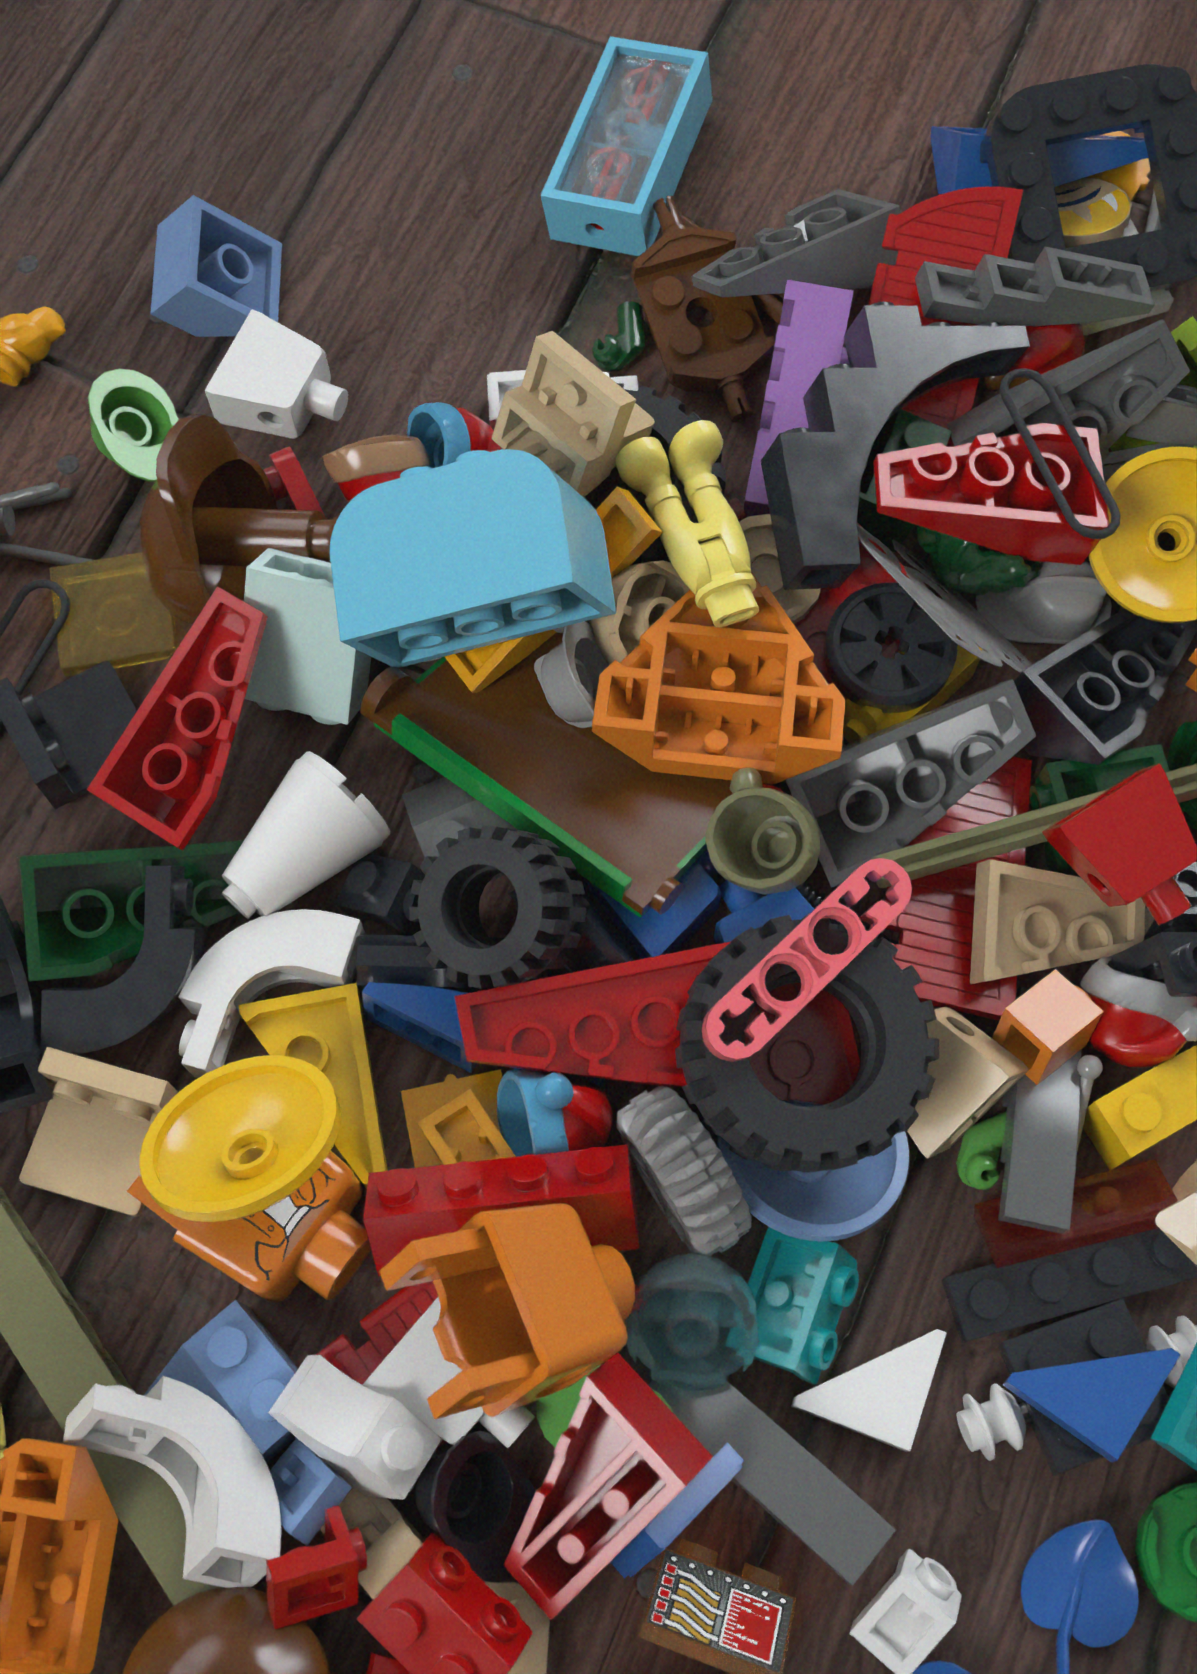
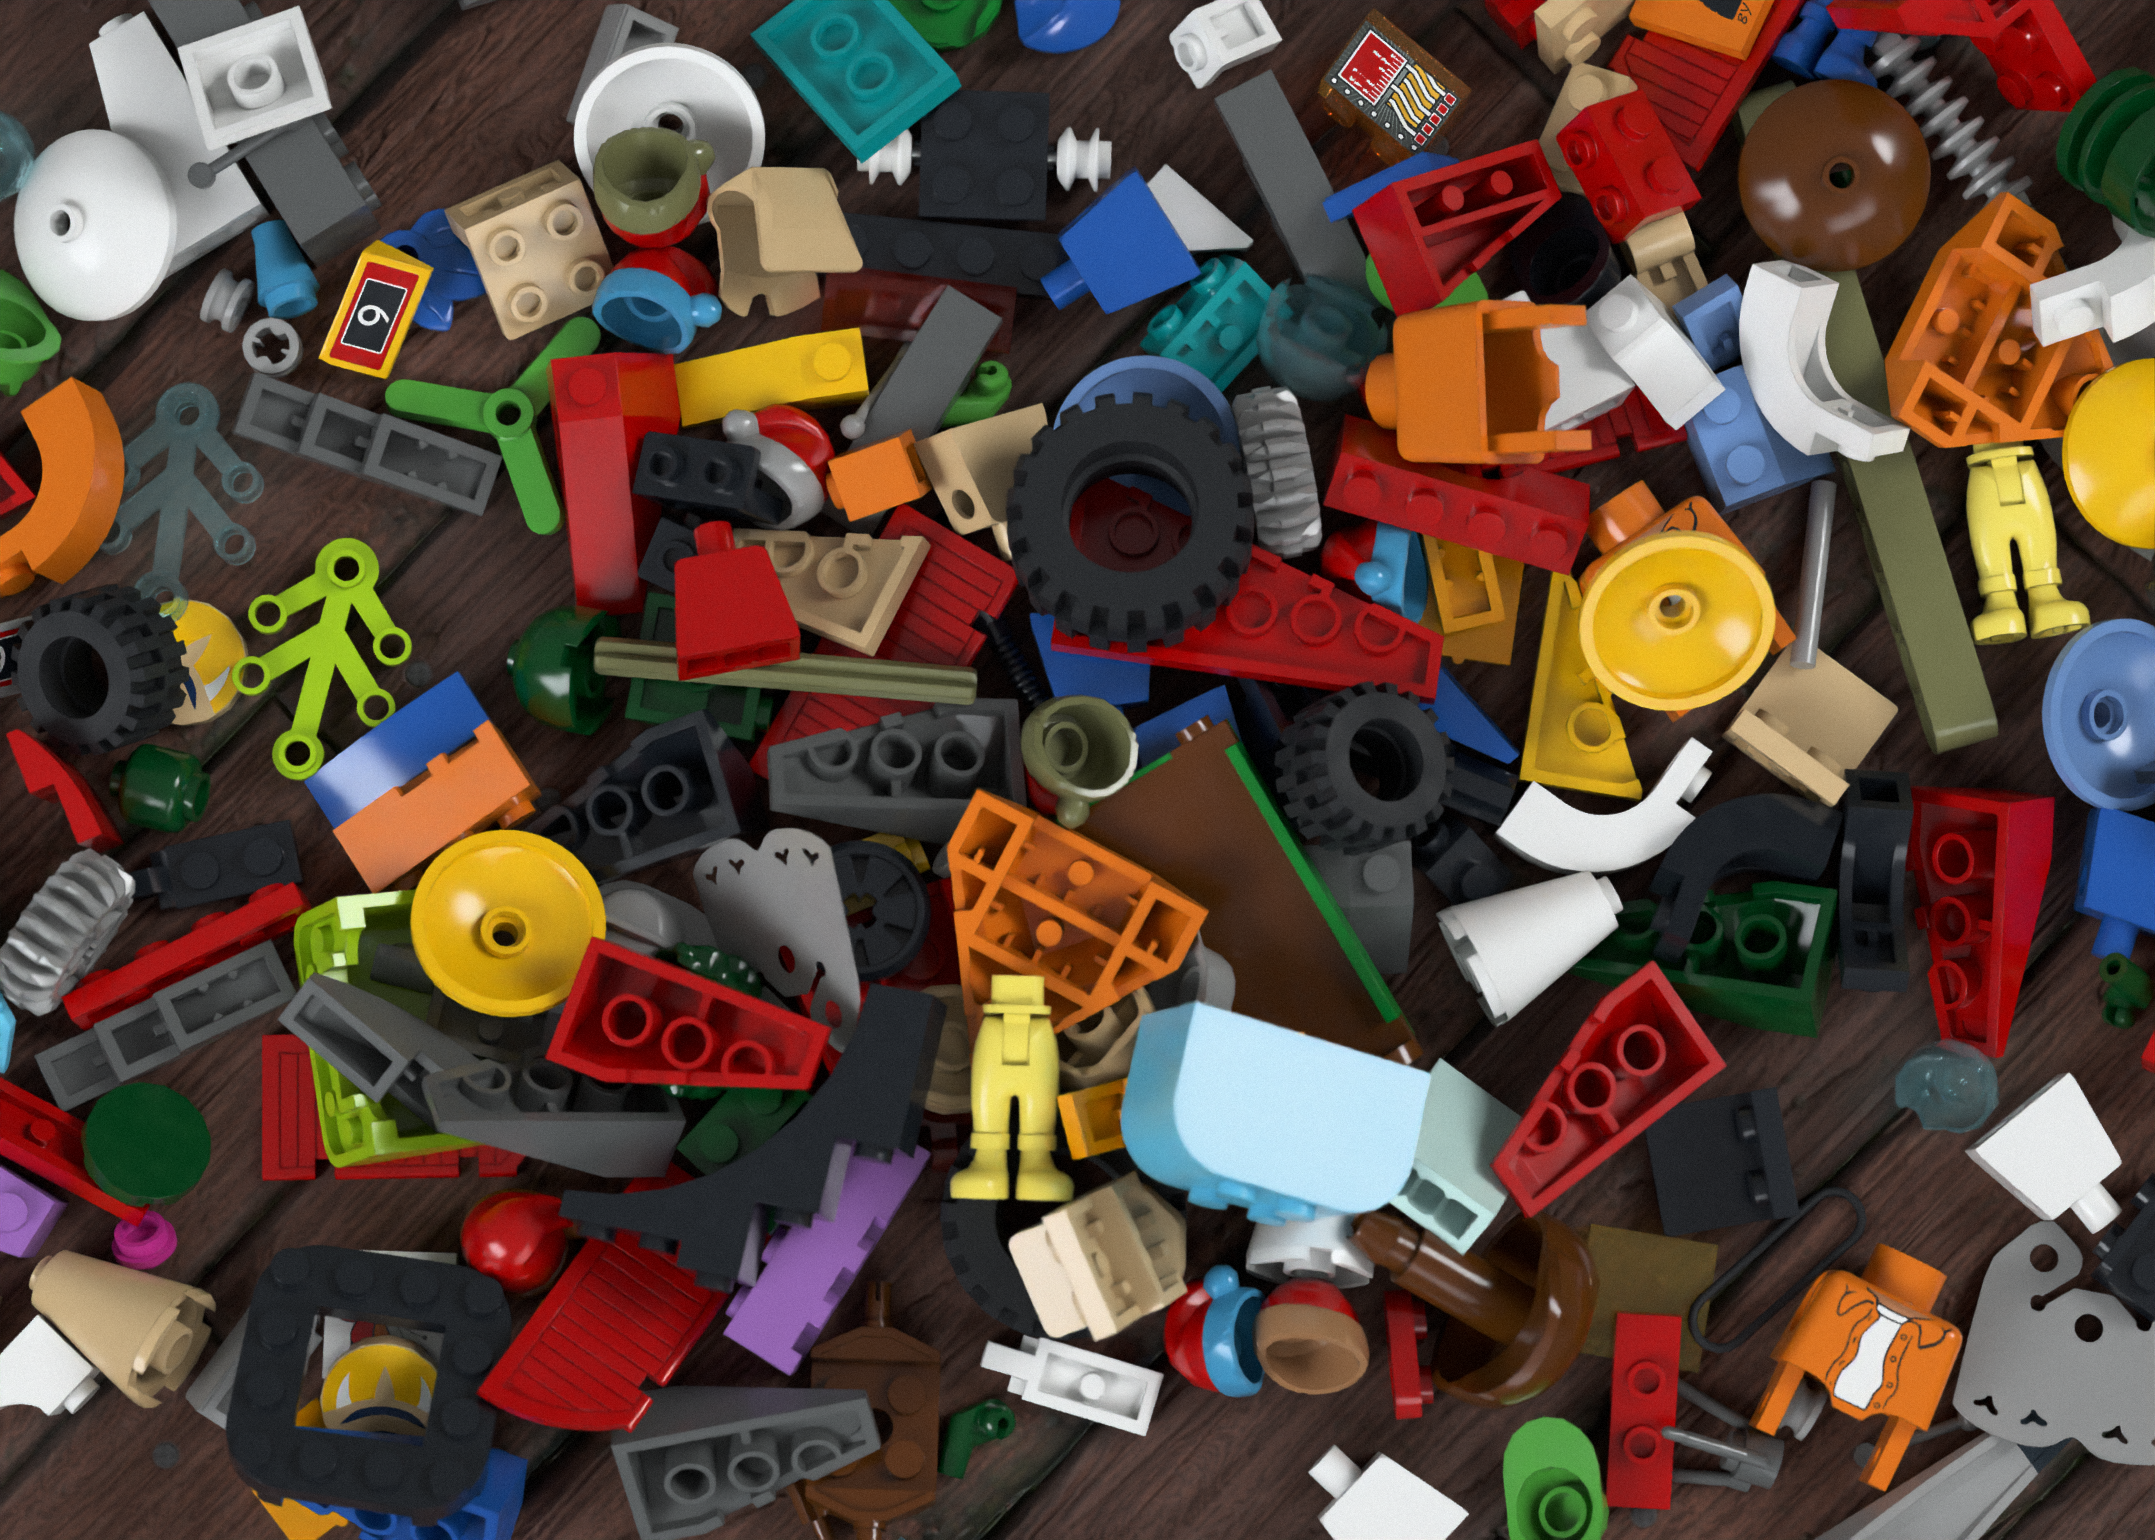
camera: 160 degrees left, 15 degrees up
(87, 523) = (1640, 1406): none -> red plate
(136, 1280) = (1813, 574): none -> light grey bar
(318, 1577) = (1724, 237): red bracket -> none
(812, 964) = (1108, 562): coral beam -> none
(917, 1337) = (1120, 249): none -> blue torso
(1052, 291) = (520, 1265): dark grey slope -> none
(1078, 443) = (578, 1037): black piece -> none
(1097, 1398) = (991, 136): blue tile -> none

